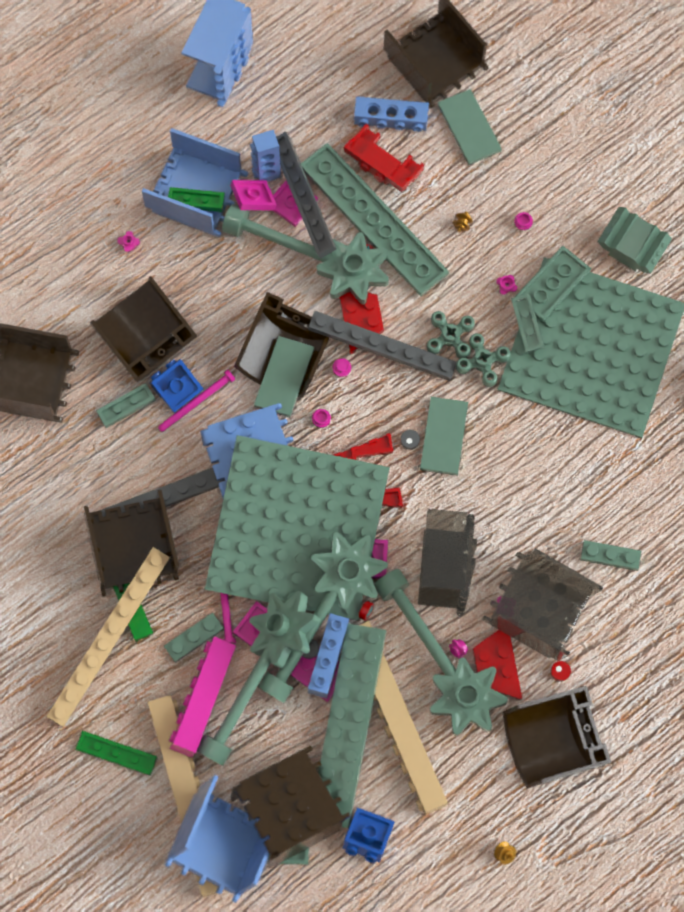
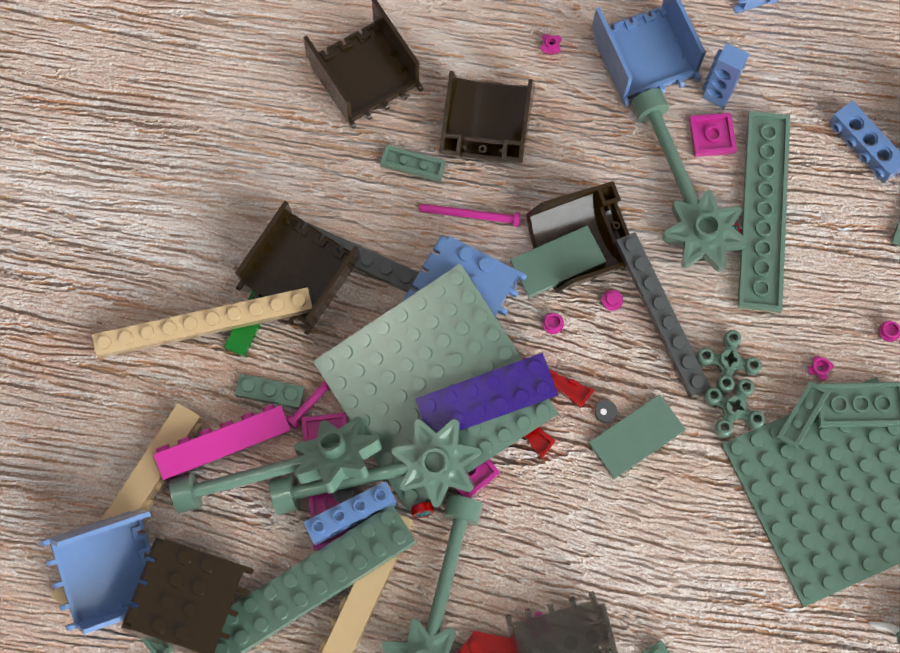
camera: 45 degrees right, 0 degrees up
(116, 753) = (117, 418): green tile -> none
(175, 384) = (467, 185): blue plate -> none
(199, 198) = (638, 61): green plate -> none
(253, 195) = (685, 98): dark pink tile -> none
(304, 197) = (724, 136): dark grey plate -> none
(337, 497) = (489, 394): none -> dark purple plate
(362, 315) = (672, 276): red wing -> none
(379, 162) = (817, 171): red bracket -> none
(447, 559) = (524, 535): clear smoke windscreen -> none
(458, 648) = (461, 618): dark pink plate -> none
(462, 222) = (837, 281): pearl gold wheel -> none

